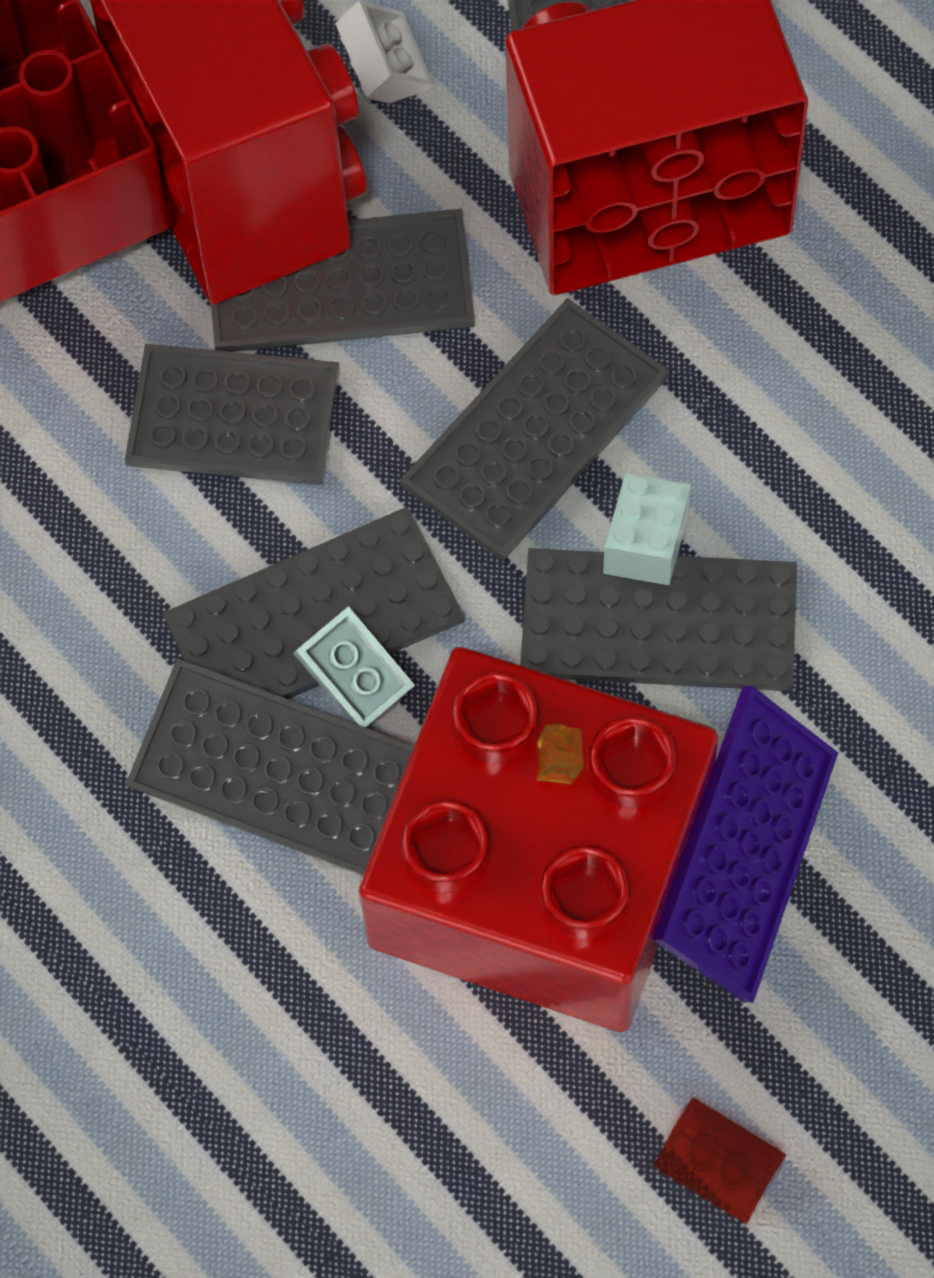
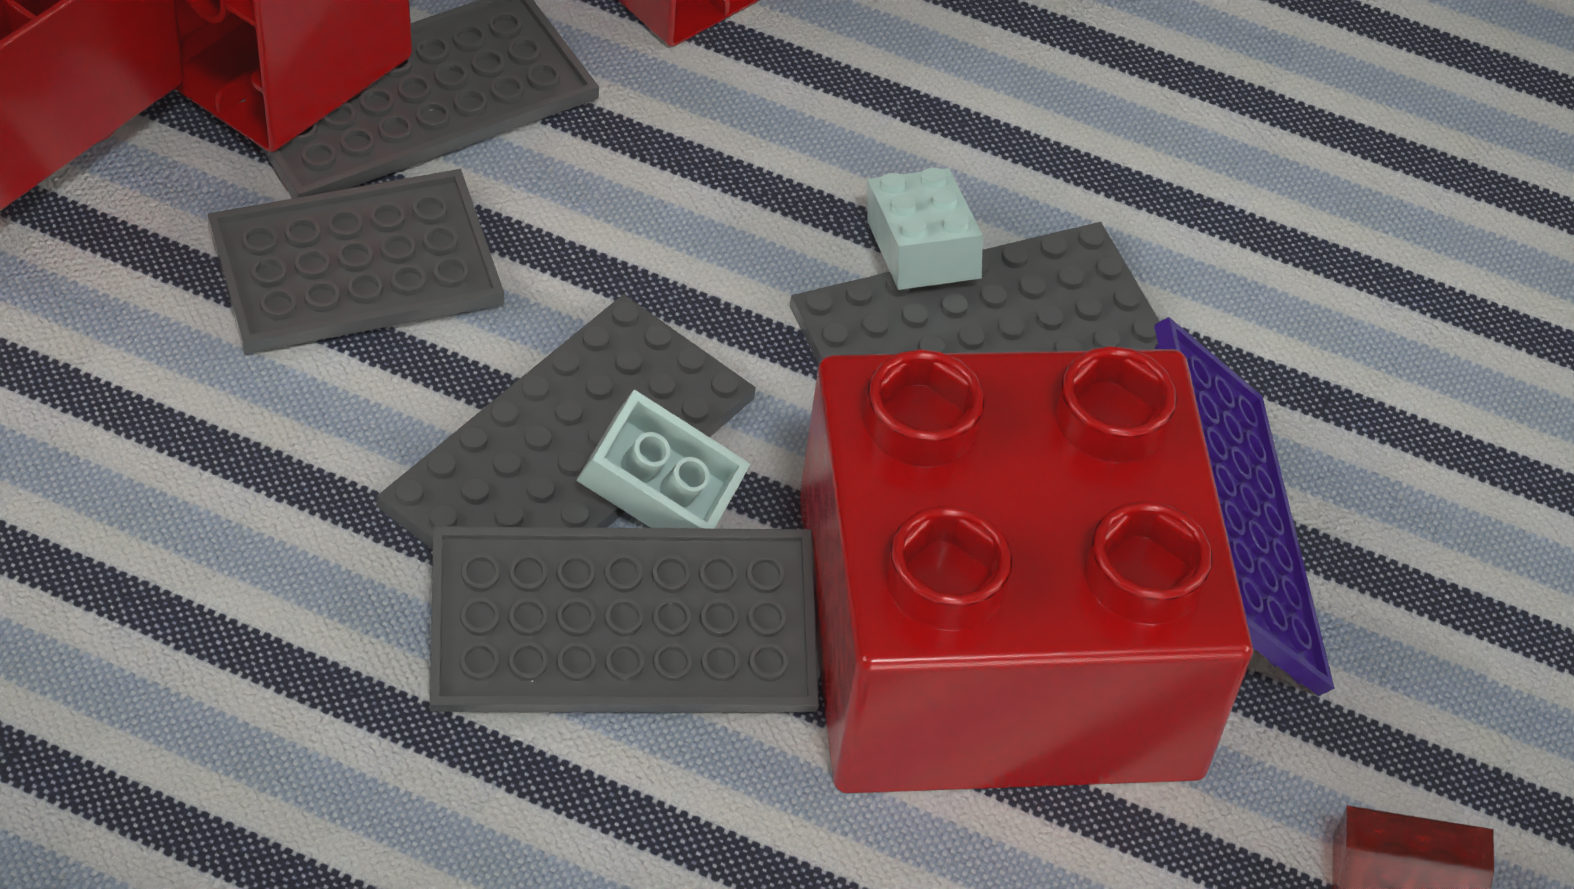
camera: 35 degrees left, 15 degrees down
(534, 429) = (727, 179): dark grey plate -> none
(560, 754) = (1028, 421): clear yellow brick -> none

